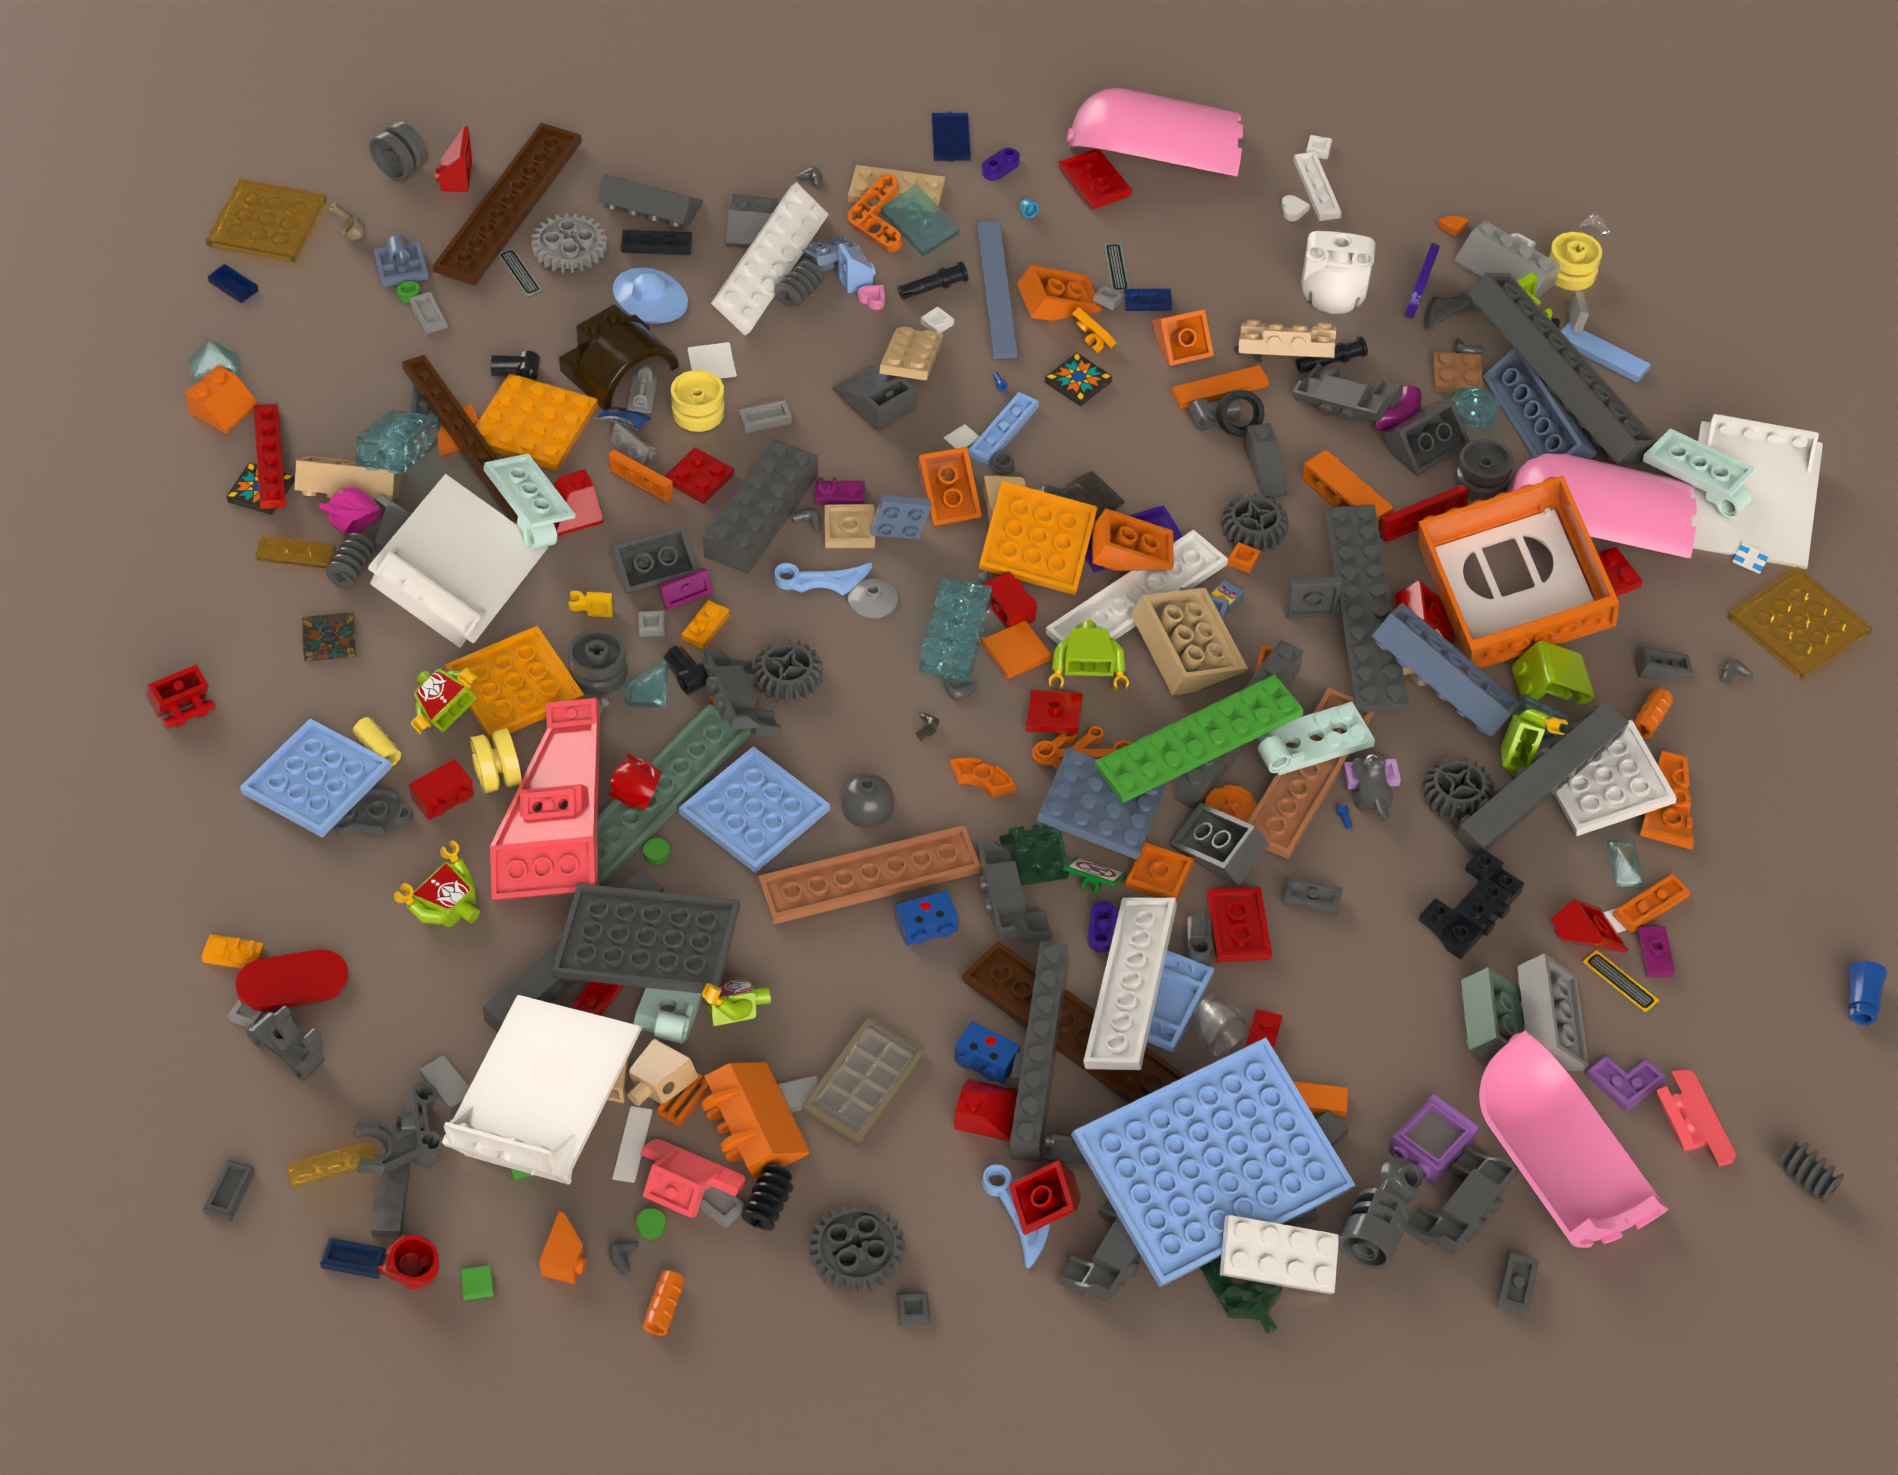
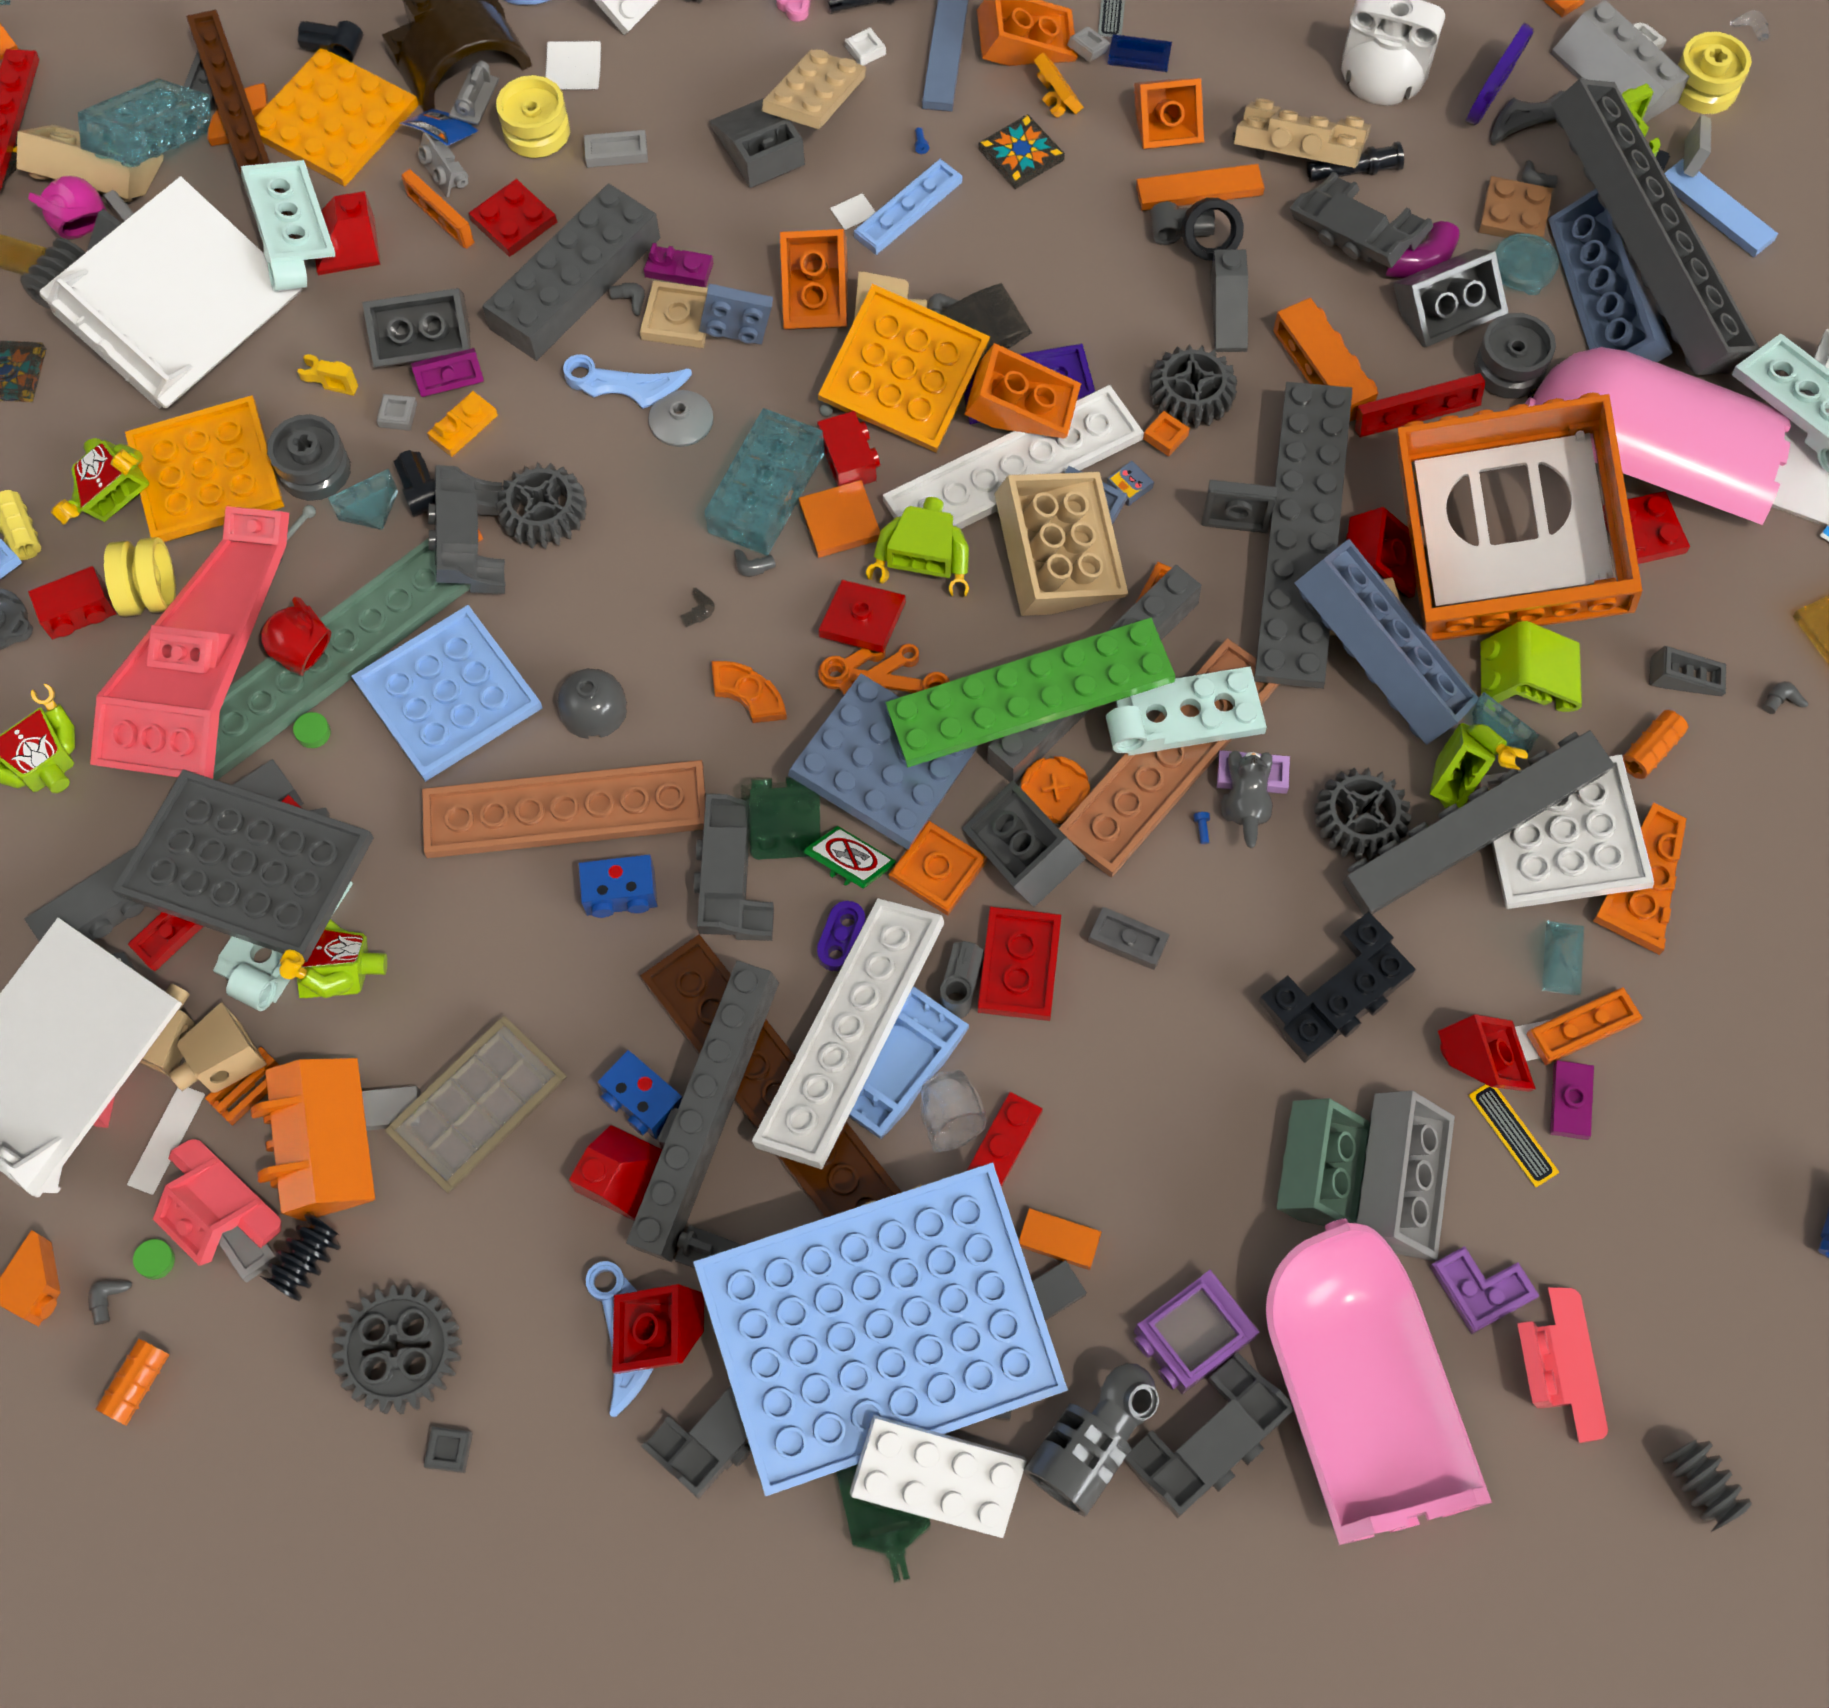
camera: 15 degrees right, 15 degrees up
(1002, 463) = (892, 255): dark grey plate -> none
(1518, 1284) = (1255, 1575): dark grey plate -> none

